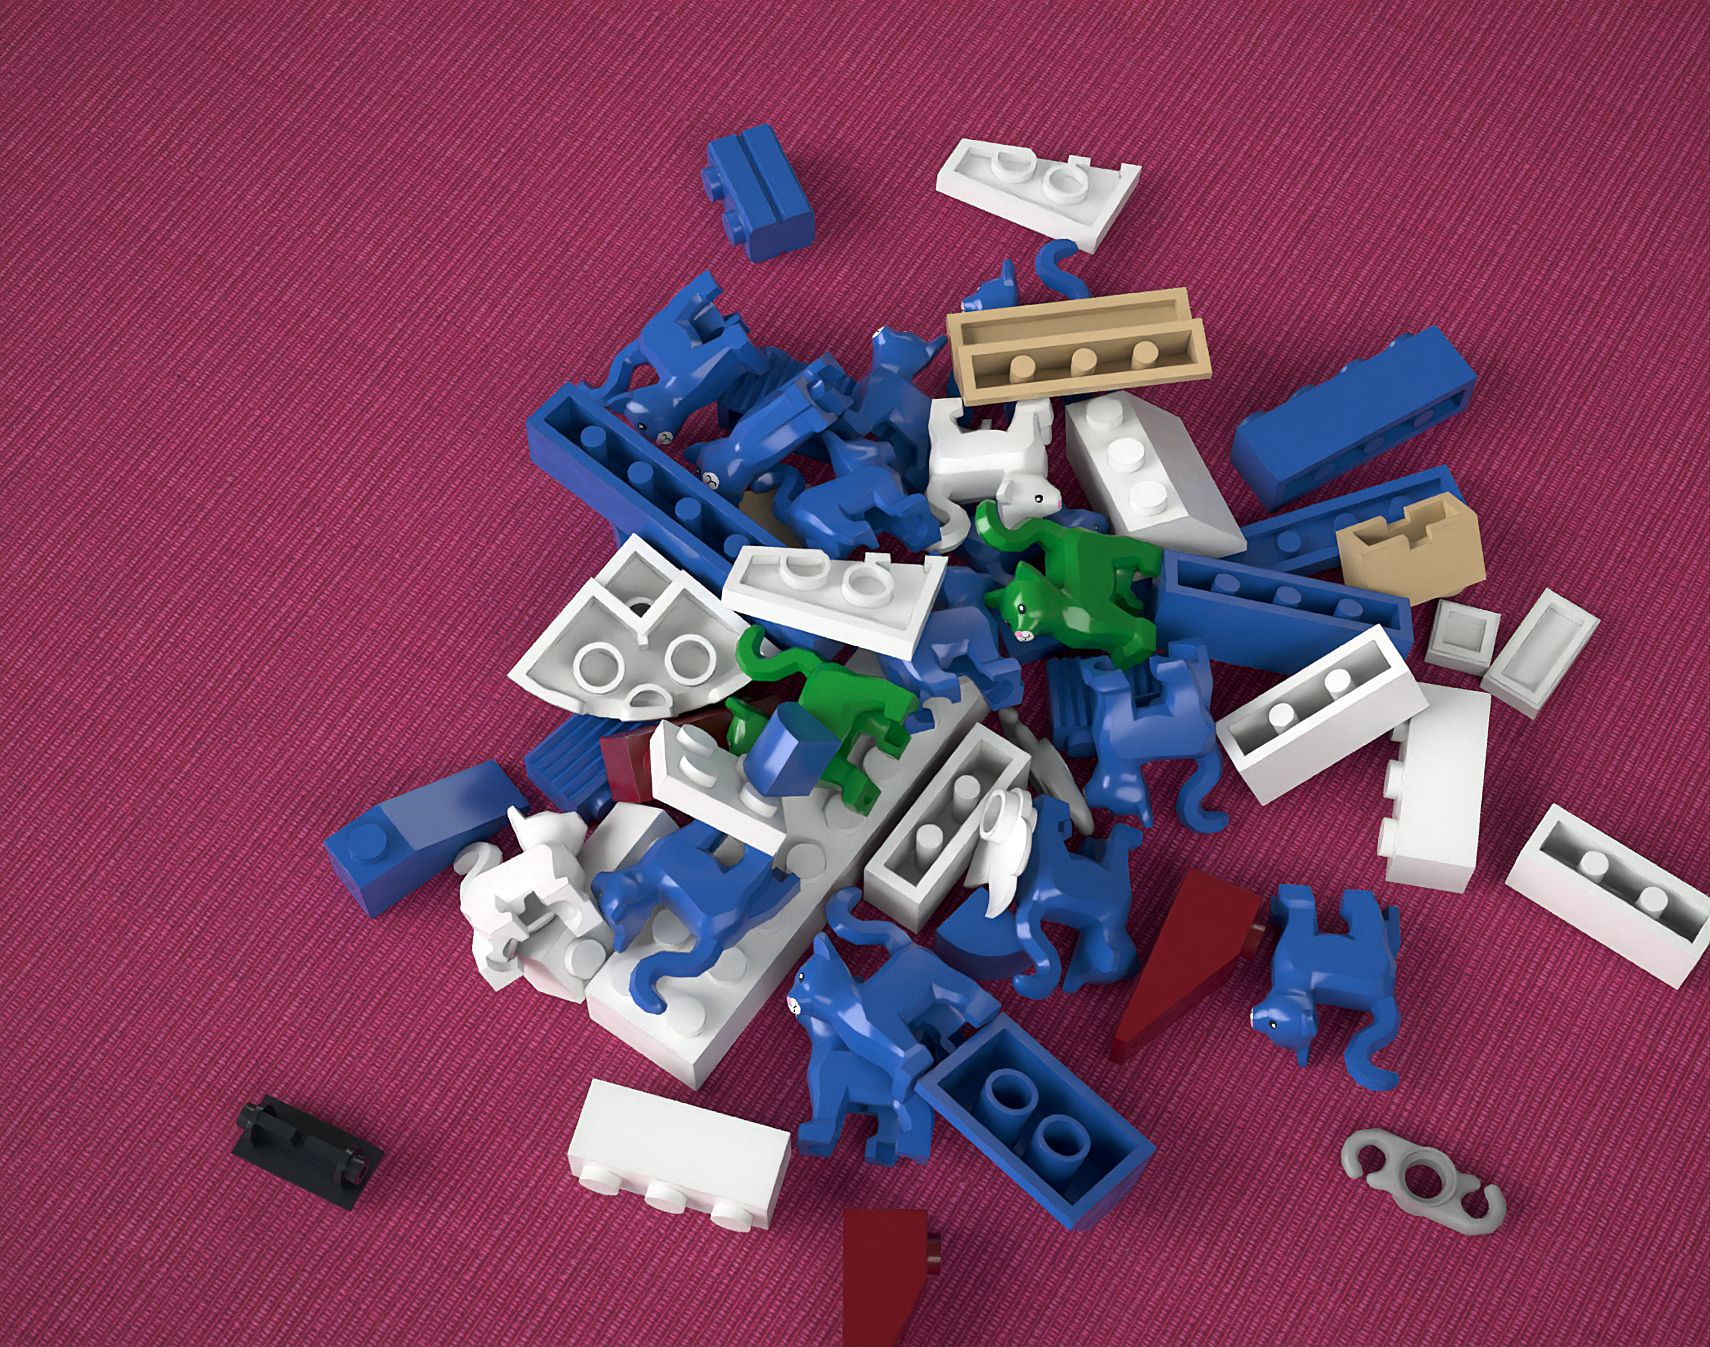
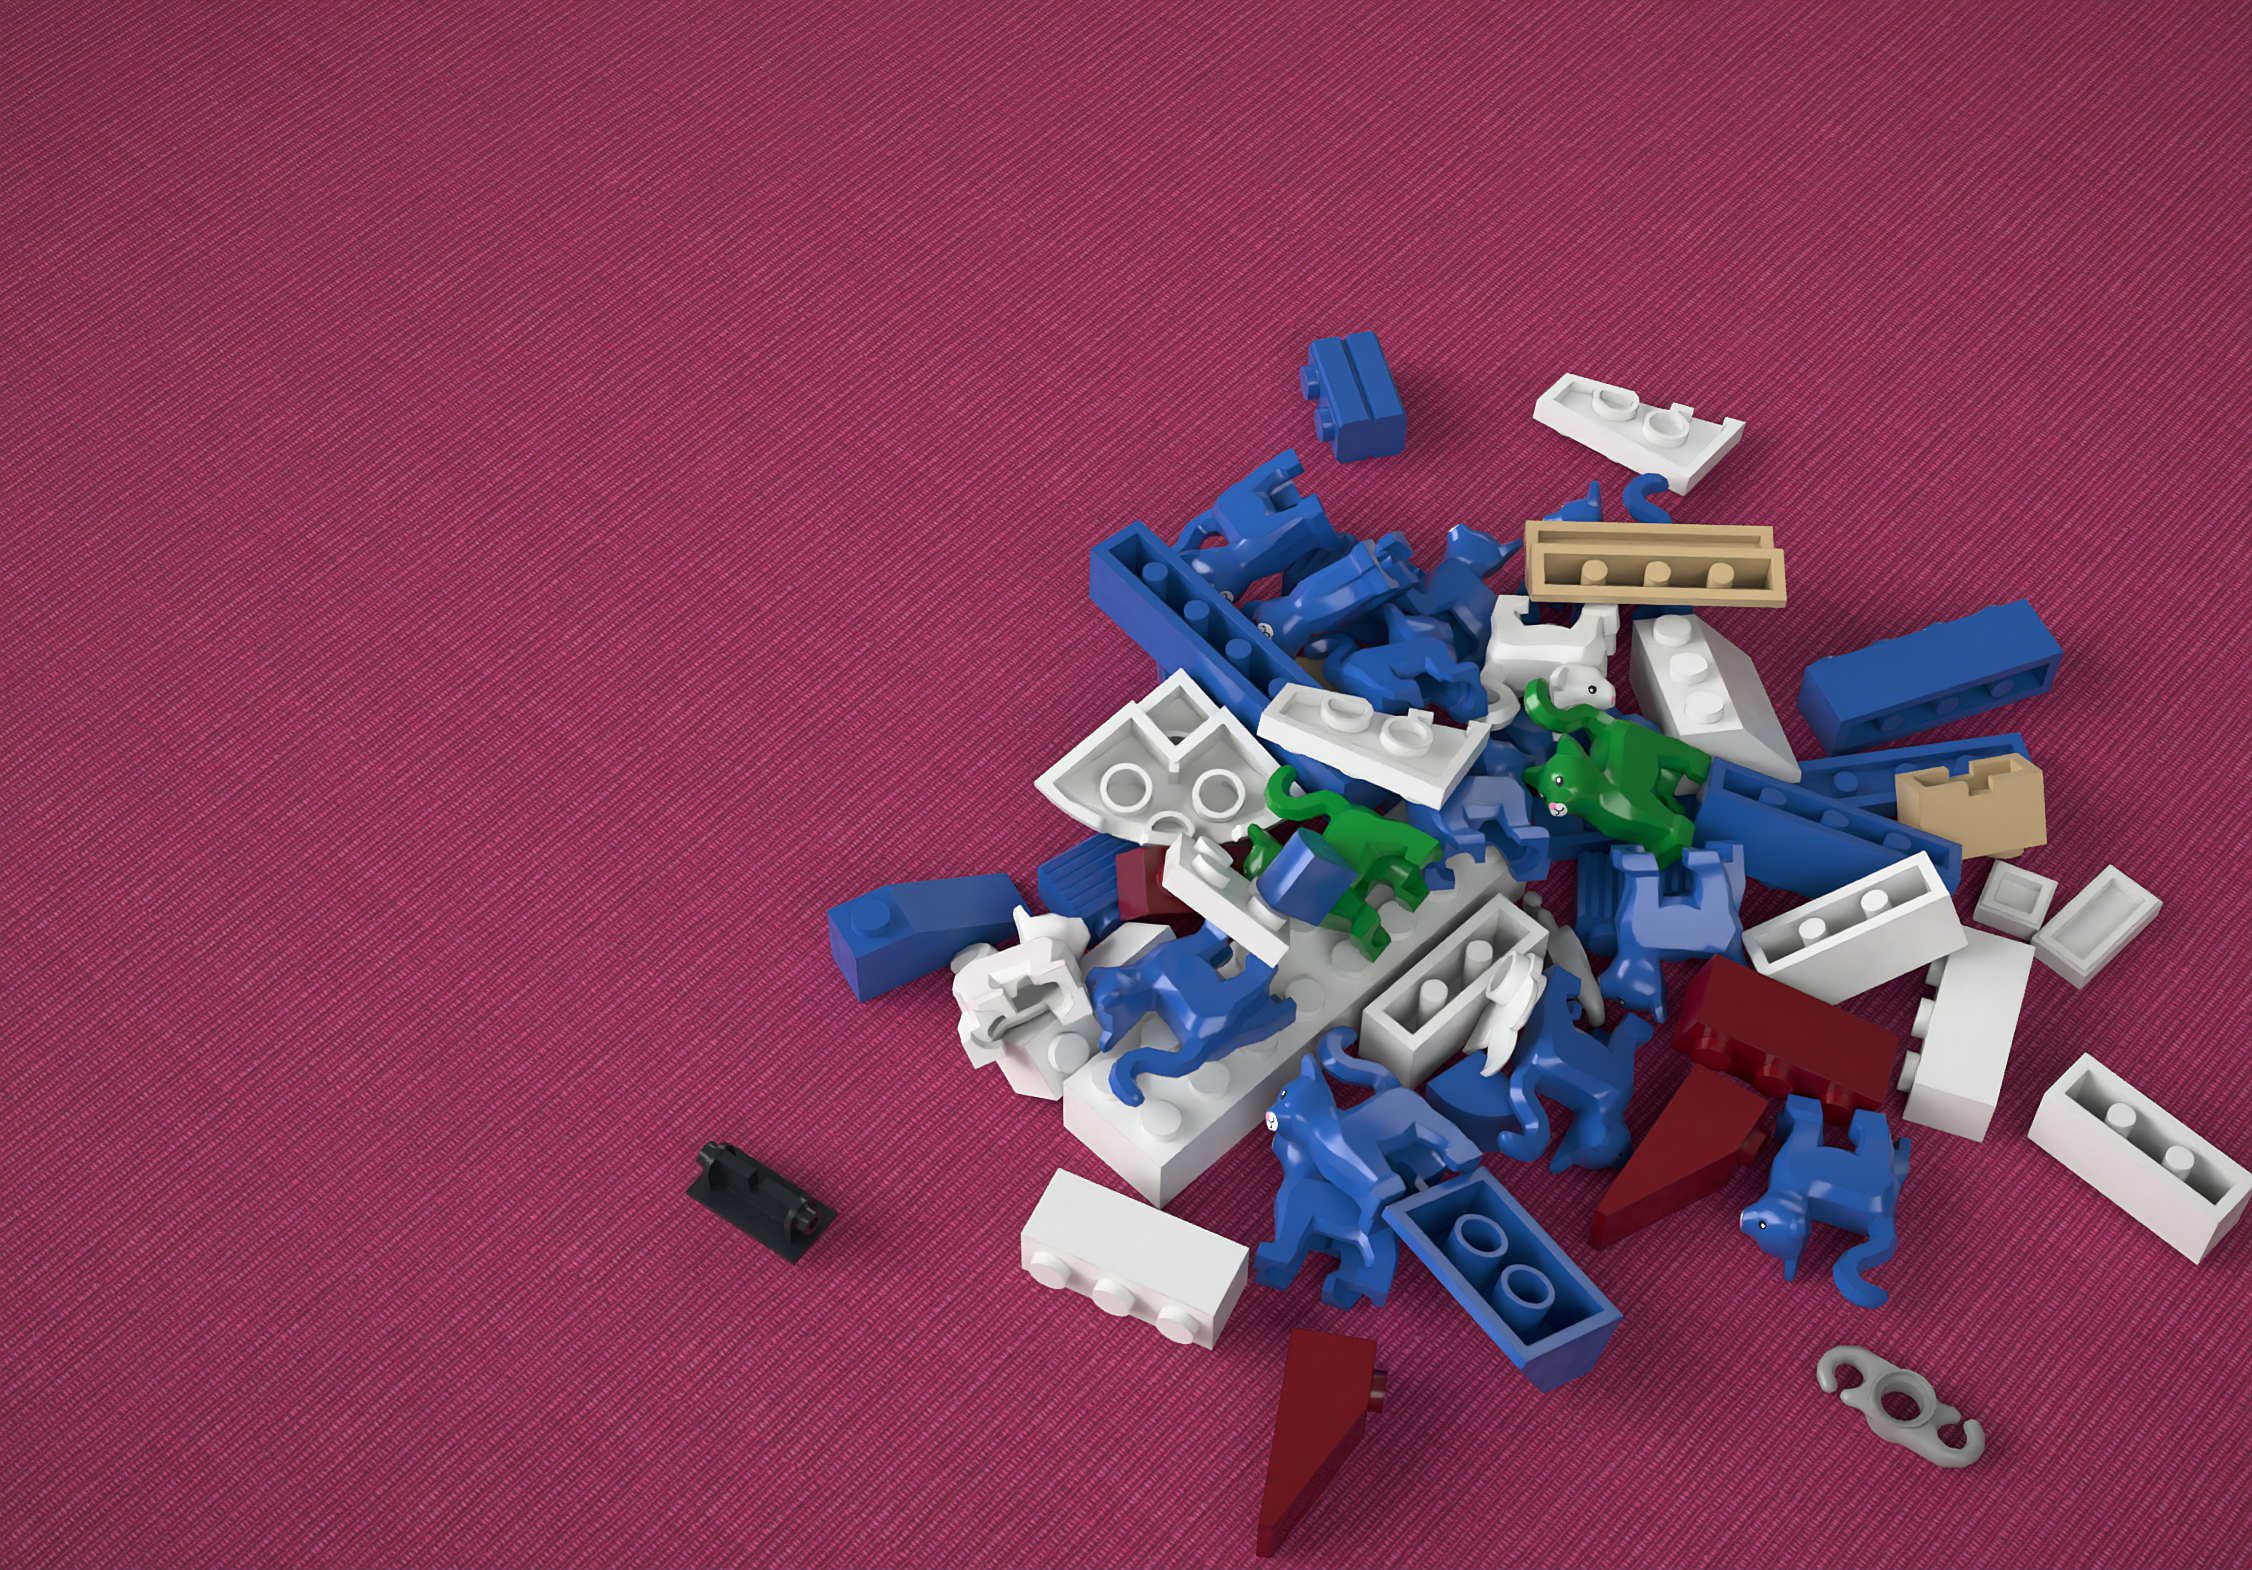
camera: 10 degrees right, 10 degrees down
(1268, 831) = (1784, 1040): none -> dark red brick

